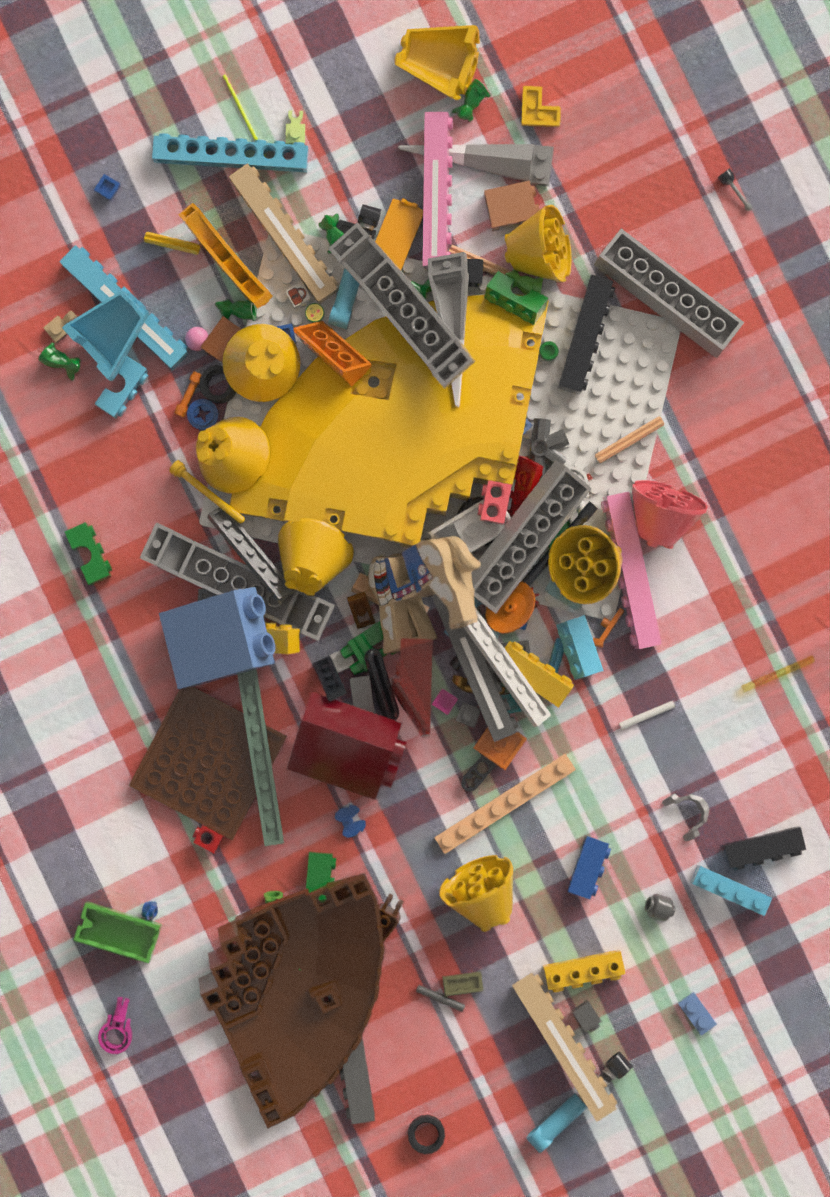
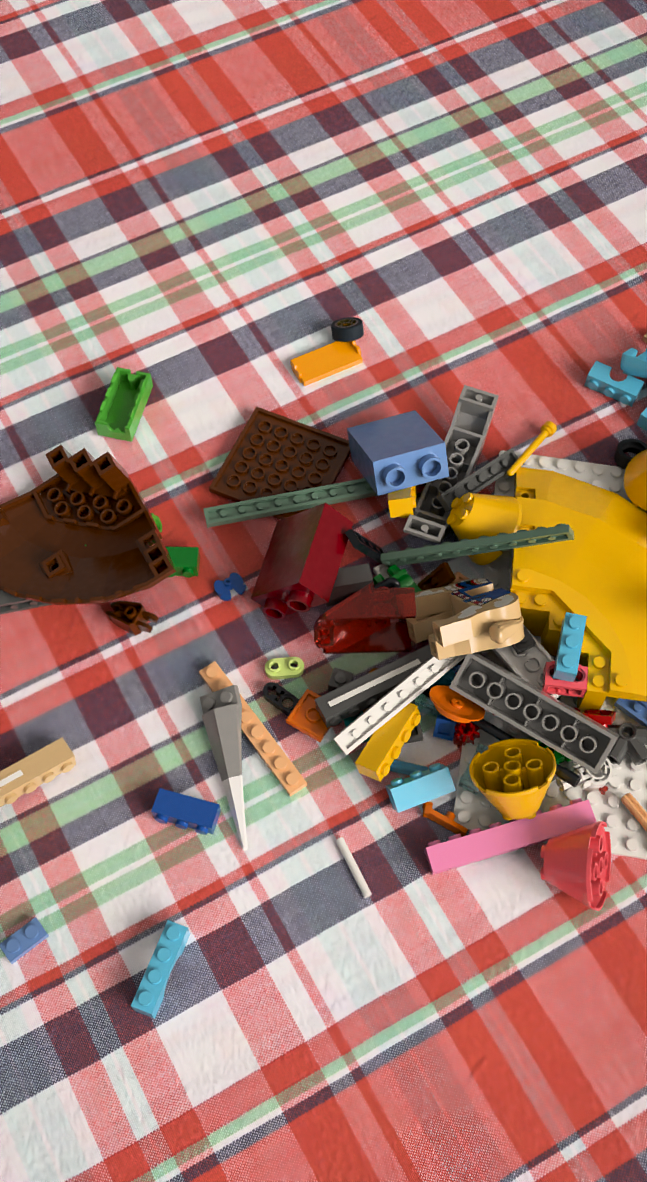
camera: 90 degrees right, 25 degrees down
(26, 670) = (347, 329): none -> black wheel
(56, 359) = (629, 335): green animal -> none
(65, 704) = (326, 361): none -> light orange brick
(83, 537) = (450, 374): green arch -> none
(119, 1016) = (43, 412): dark pink pin -> none
(150, 910) = (143, 429): blue plate -> none
(181, 410) = (603, 430): orange bar -> none
(206, 406) = (603, 441): blue gear -> none
(216, 838) = (208, 469): red brick -> none
(232, 454) = (572, 457): yellow cone -> none
(346, 563) = (483, 544): none -> sand green plate
(440, 998) = (53, 677): dark grey piece -> none
(444, 701) = (352, 663): dark pink plate -> none
(444, 769) = (284, 668): none -> yellowish green plate
(463, 983) = (66, 695): olive plate -> none
(474, 496) = (569, 647): none -> medium azure brick
(481, 891) = (156, 700): yellow cone -> none
(507, 830) = (223, 726): none -> light grey plate
(583, 970) = (76, 813): yellow brick -> none
(587, 1016) = (26, 818): dark grey brick -> none
(659, 907) = (142, 890): dark grey head -> none
(701, 805) = (227, 924): light grey helmet -> none
(764, 847) = (210, 1007): black brick -> none
(778, 673) = (419, 1028): clear yellow bar -> none

